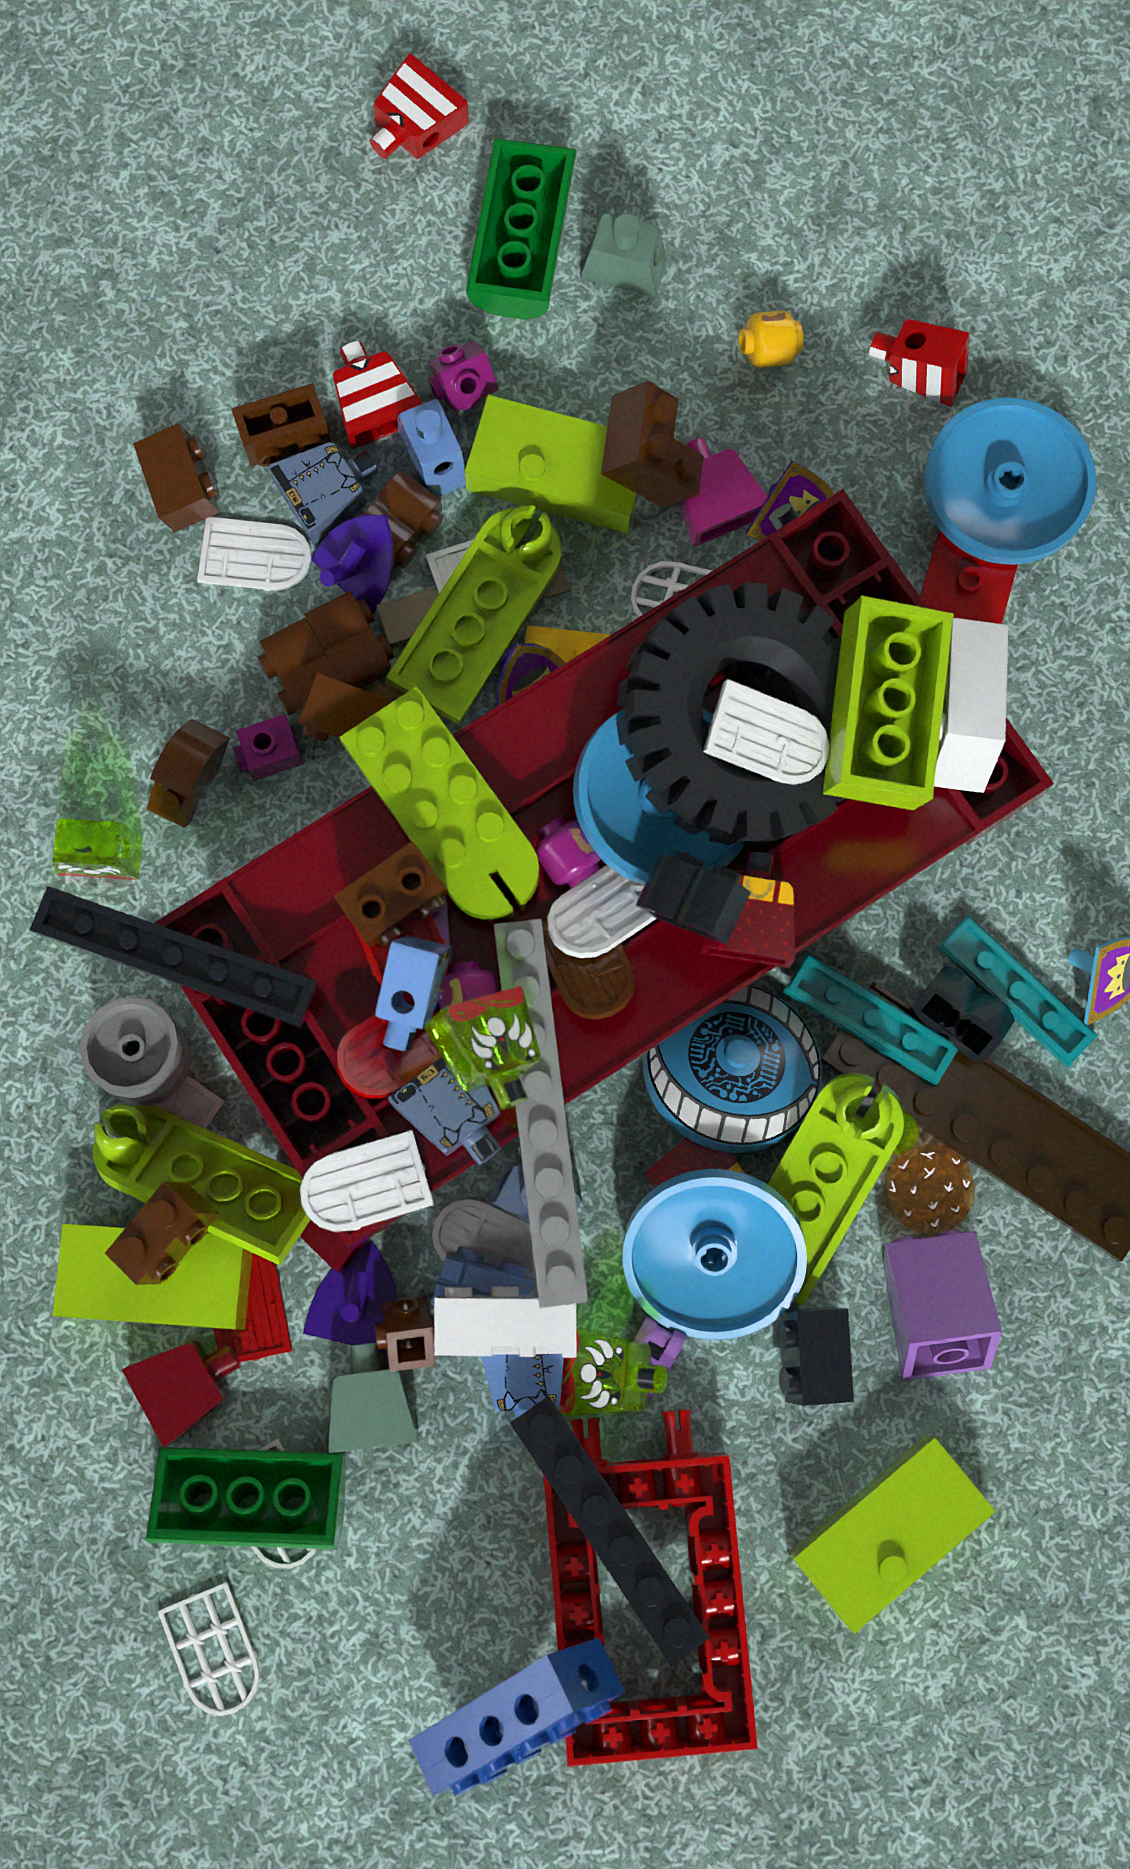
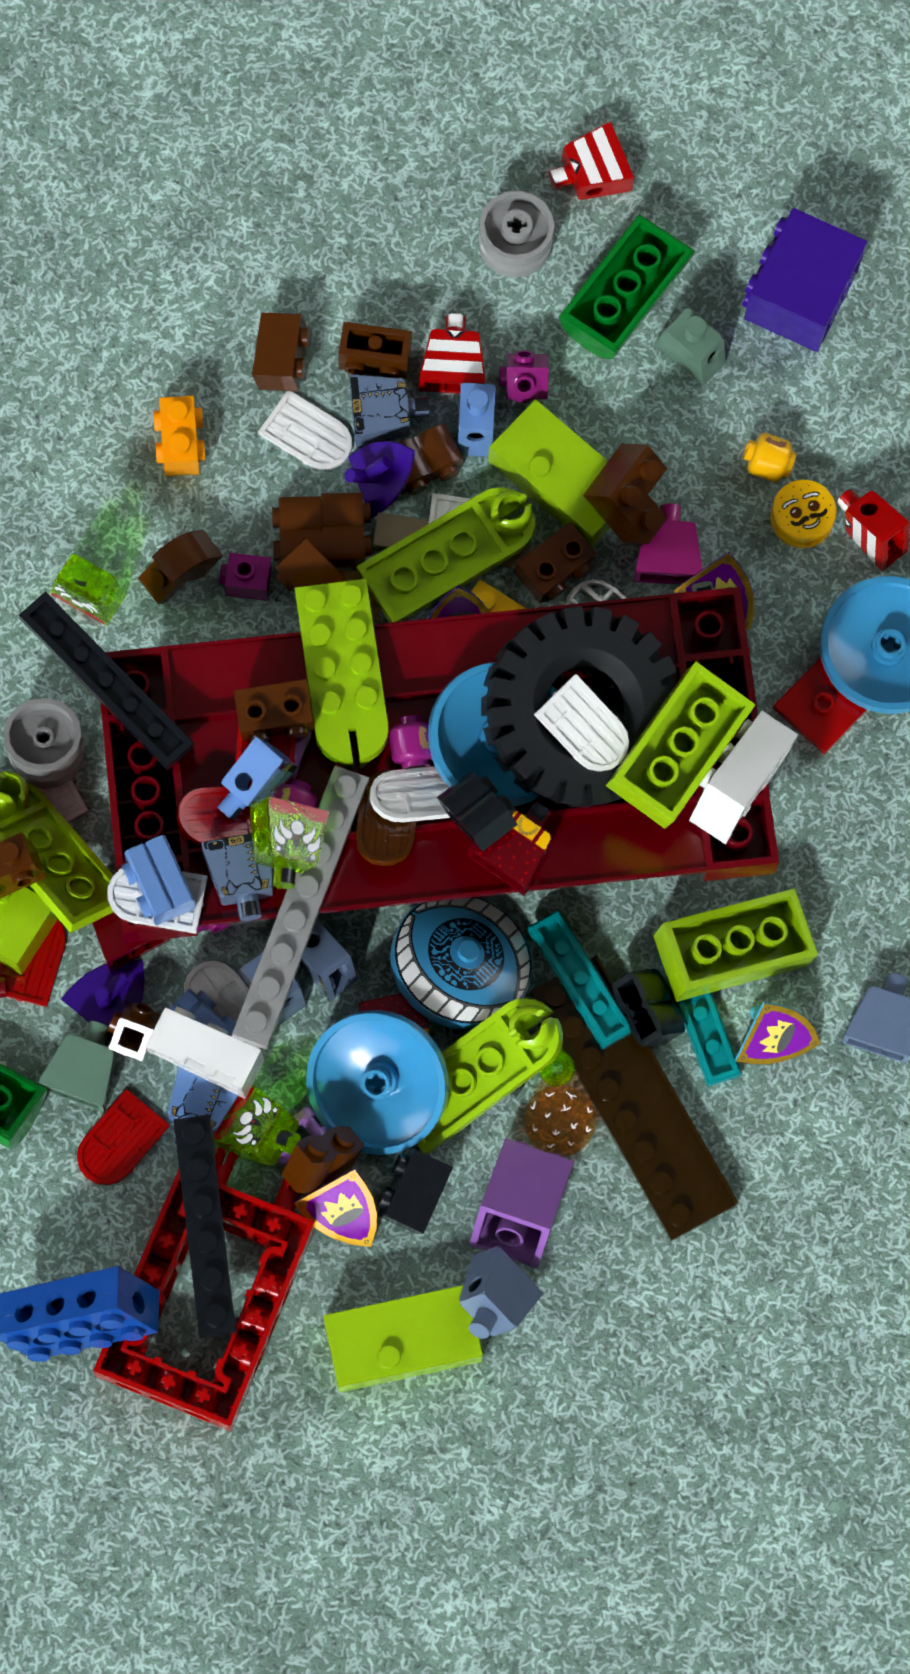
camera: 25 degrees right, 5 degrees down
(104, 613) = (178, 426): none -> light orange brick
(358, 1167) = (158, 880): none -> medium blue brick
(370, 224) = (516, 234): none -> light grey wheel
(452, 1464) = (119, 1140): none -> red window
(592, 1145) = (327, 963): none -> sand blue torso
(600, 566) = (555, 563): none -> reddish brown brick
(698, 1376) = (322, 1158): none -> reddish brown brick
(709, 125) = (803, 279): none -> dark purple container
(748, 1418) = (342, 1209): none -> shield
(838, 383) = (803, 513): none -> yellow head
(974, 1432) = (496, 1293): none -> sand blue torso
(1022, 896) = (735, 945): none -> lime brick

